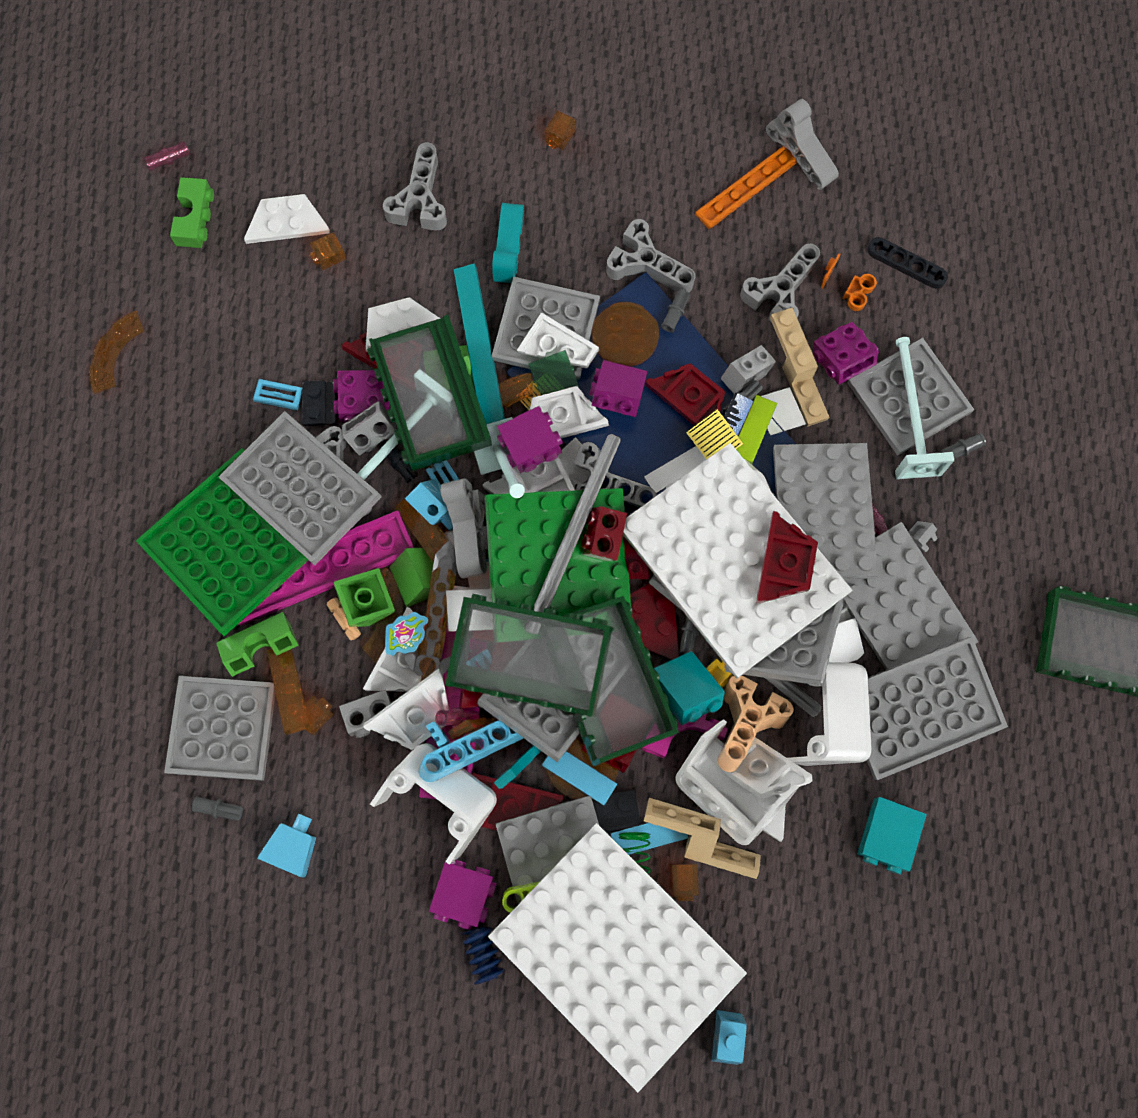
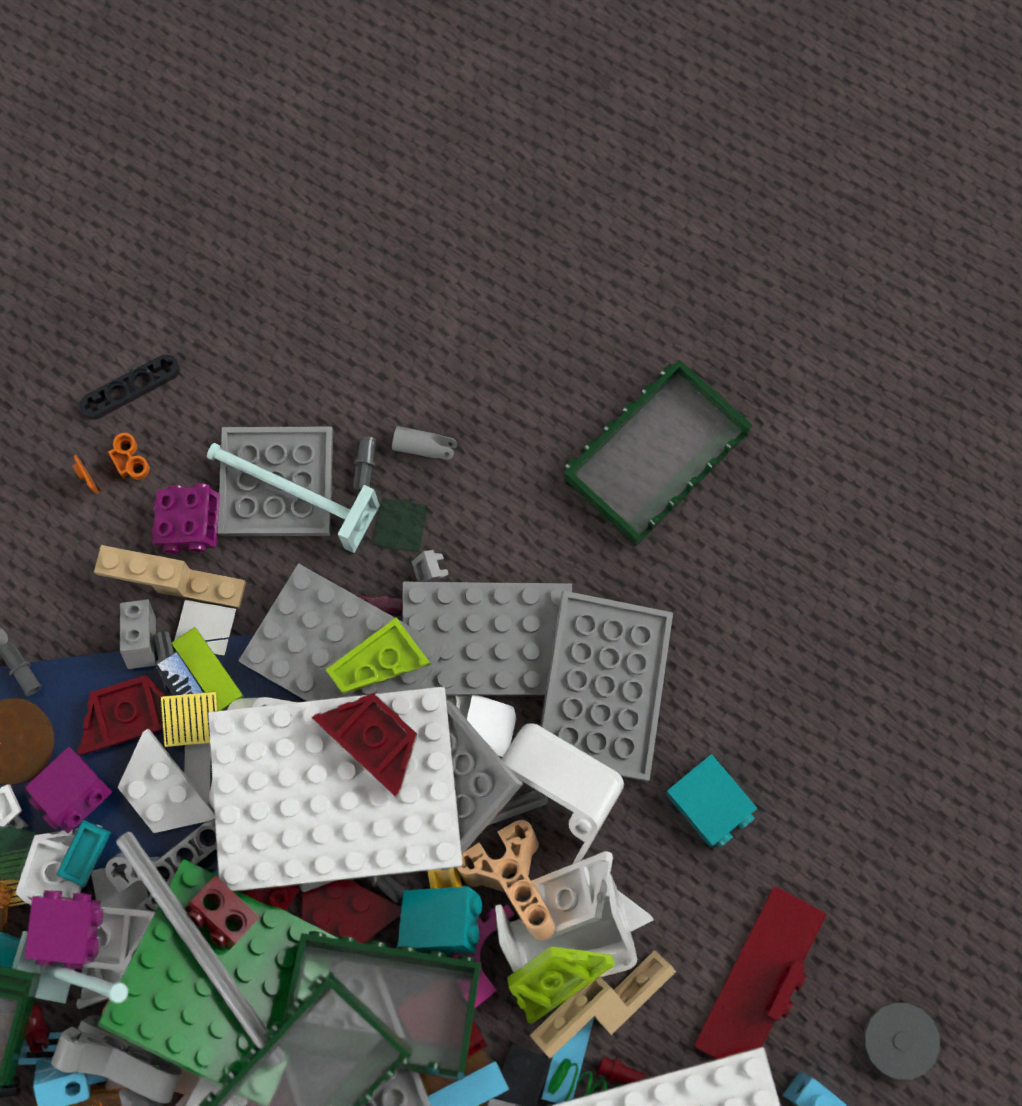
camera: 55 degrees left, 0 degrees up
(453, 466) = (36, 1031): none -> dark red pin
(584, 423) = (83, 853): none -> teal tile
(657, 447) = (161, 789): none -> white wing
(661, 875) = (618, 1072): none -> dark red pin
(684, 881) = (636, 1050): clear orange brick -> none
(700, 791) = (555, 978): none -> lime wing
(768, 287) = (59, 551): light grey beam -> none
(793, 946) = (762, 977): none -> dark red bracket
(811, 1080) = (901, 1041): none -> dark grey wheel
(840, 535) = (378, 658): none -> lime wing
(937, 498) = (400, 525): none -> clear green piece
(1005, 477) = (422, 443): none -> light grey piece

